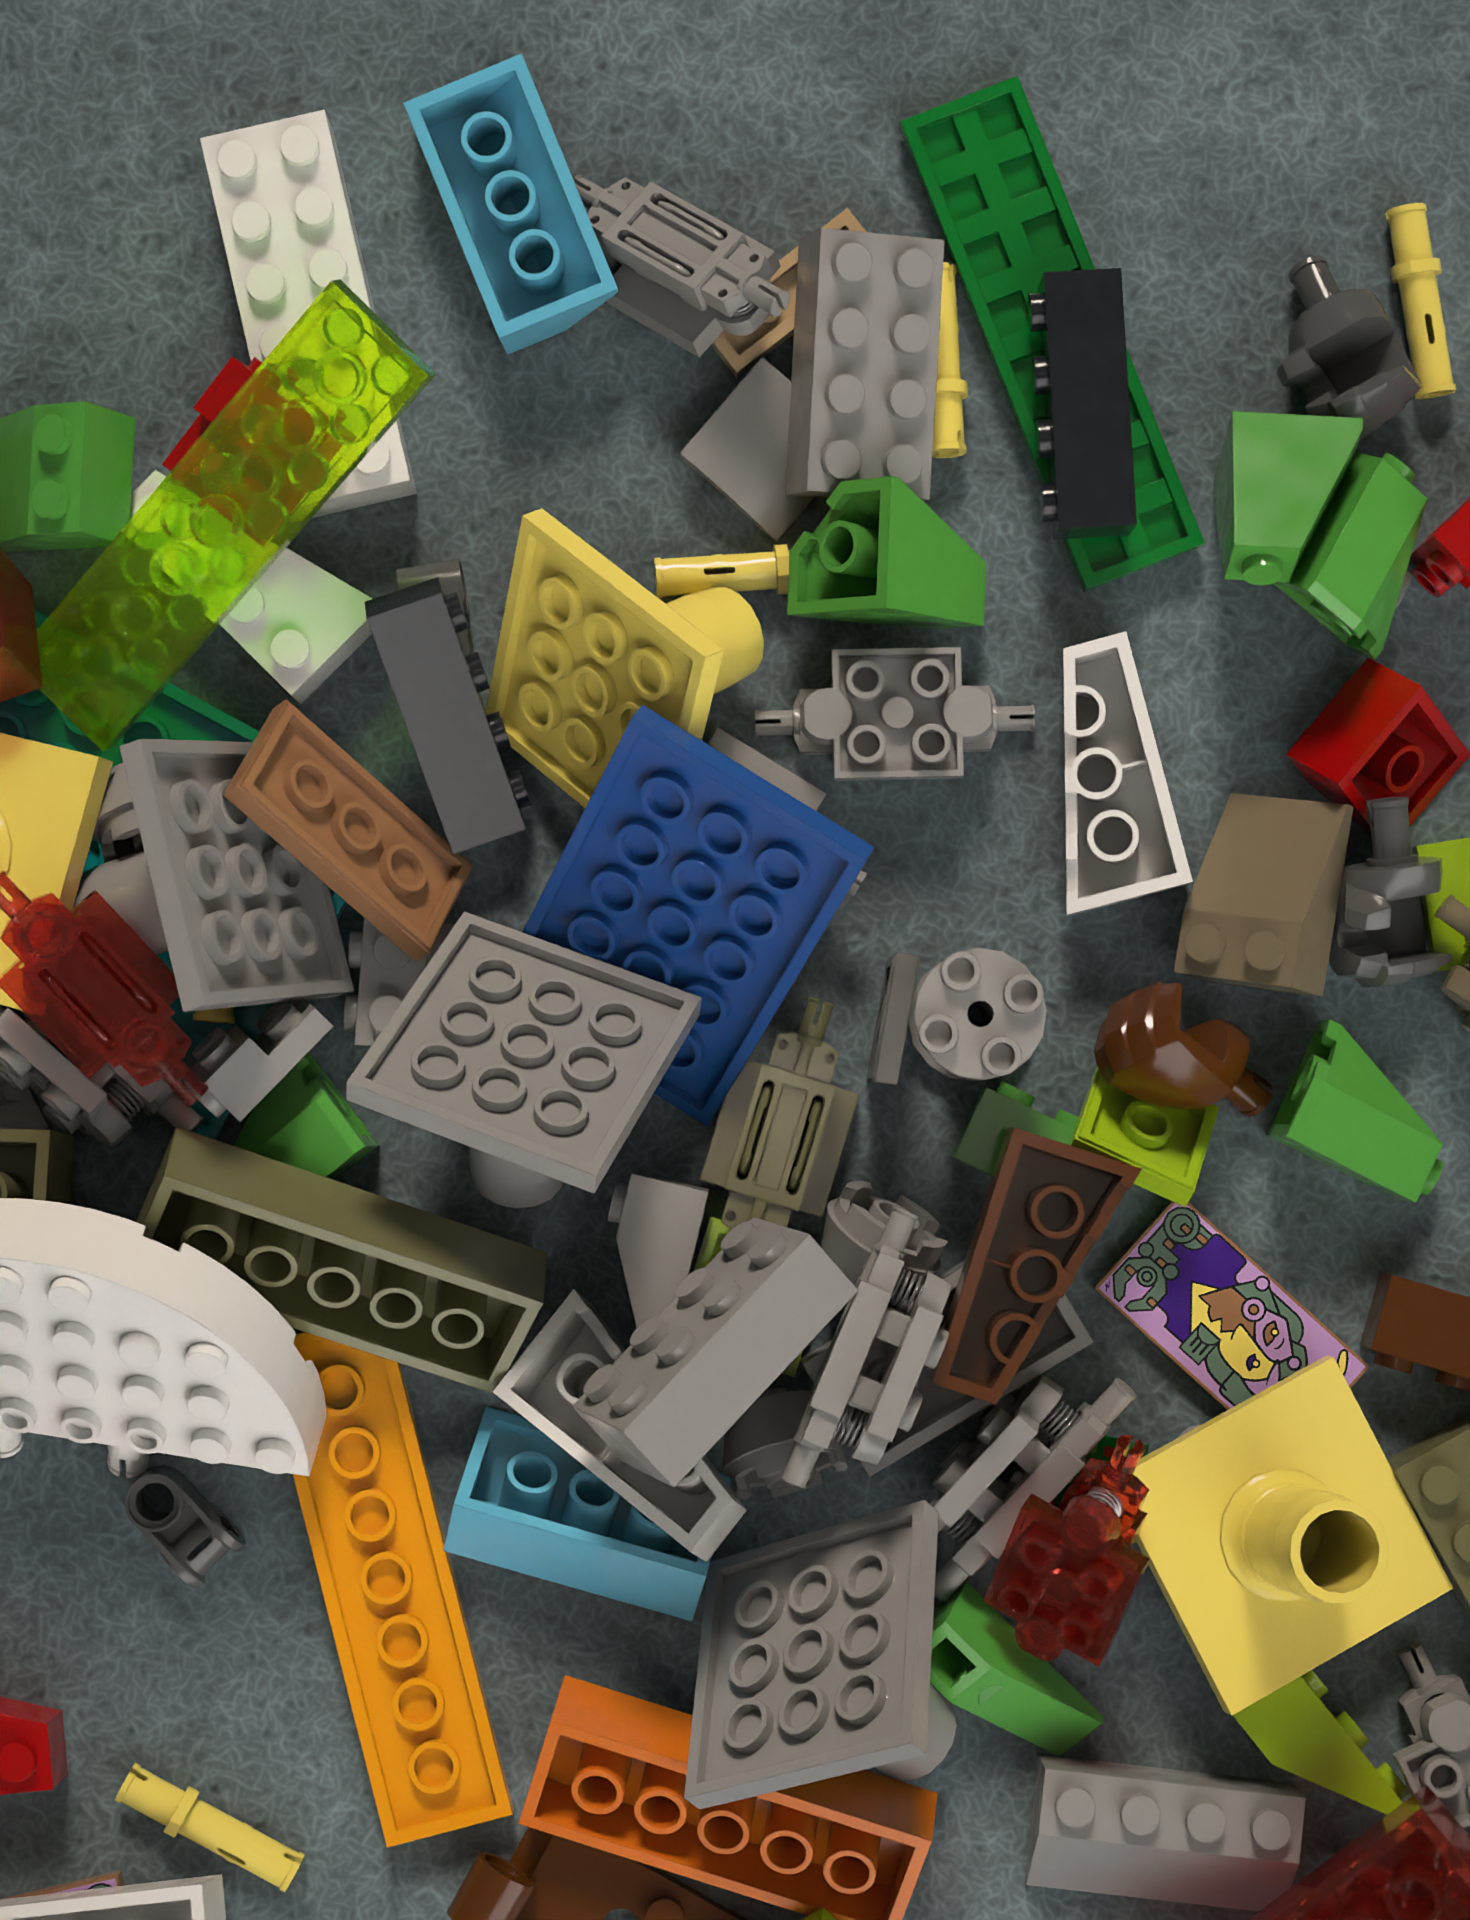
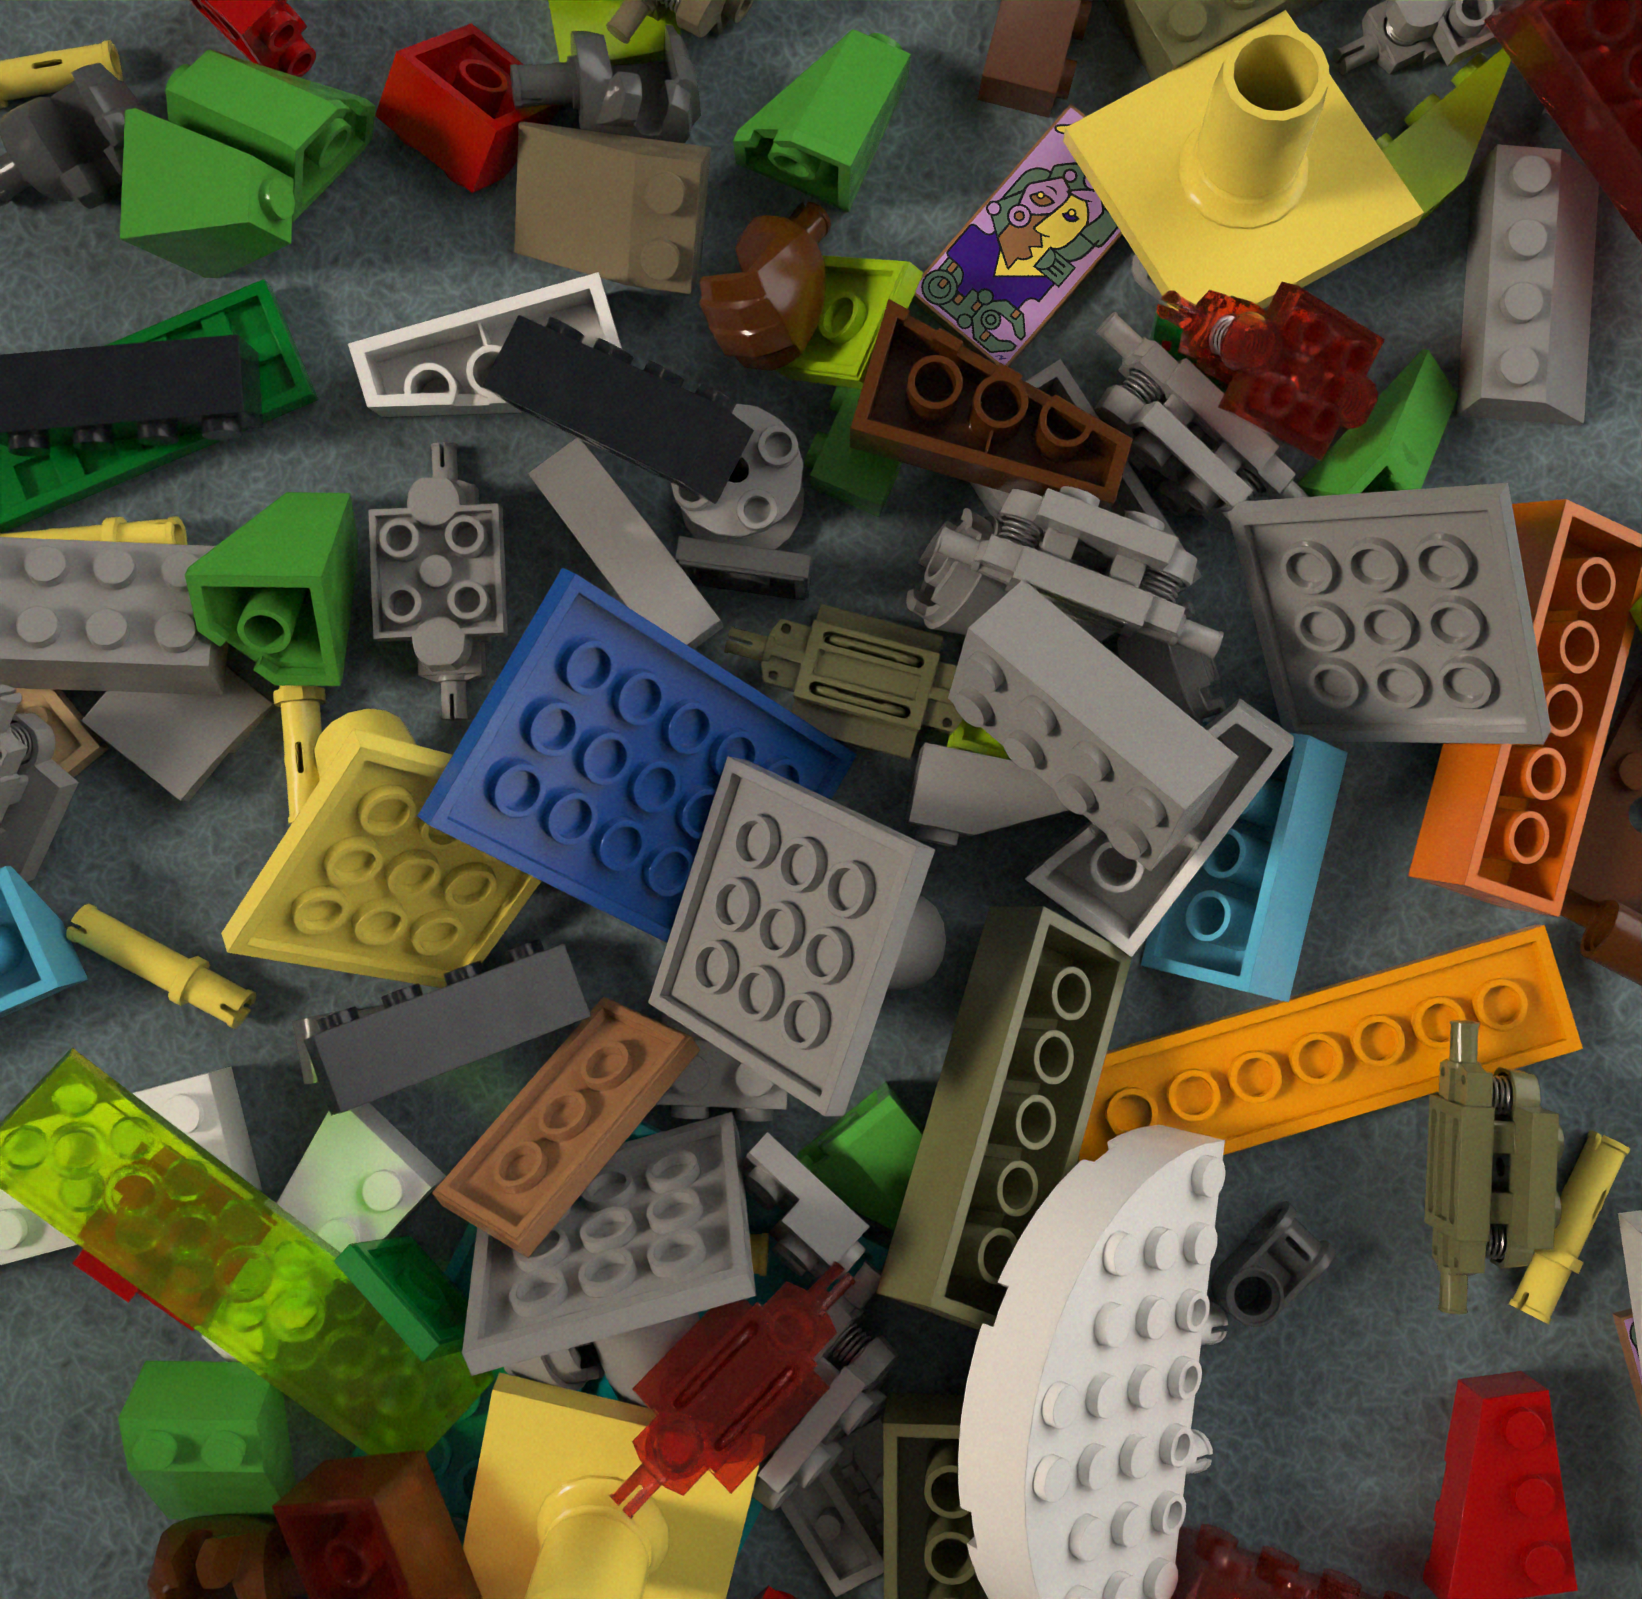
camera: 90 degrees left, 0 degrees up
(188, 678) = (408, 1293): none -> green tile
(272, 1739) = (1487, 1168): none -> olive piece
(505, 450) = (182, 977): none -> light yellow pin
(920, 897) = (624, 544): none -> light grey slope
(1042, 899) = (620, 407): none -> black brick

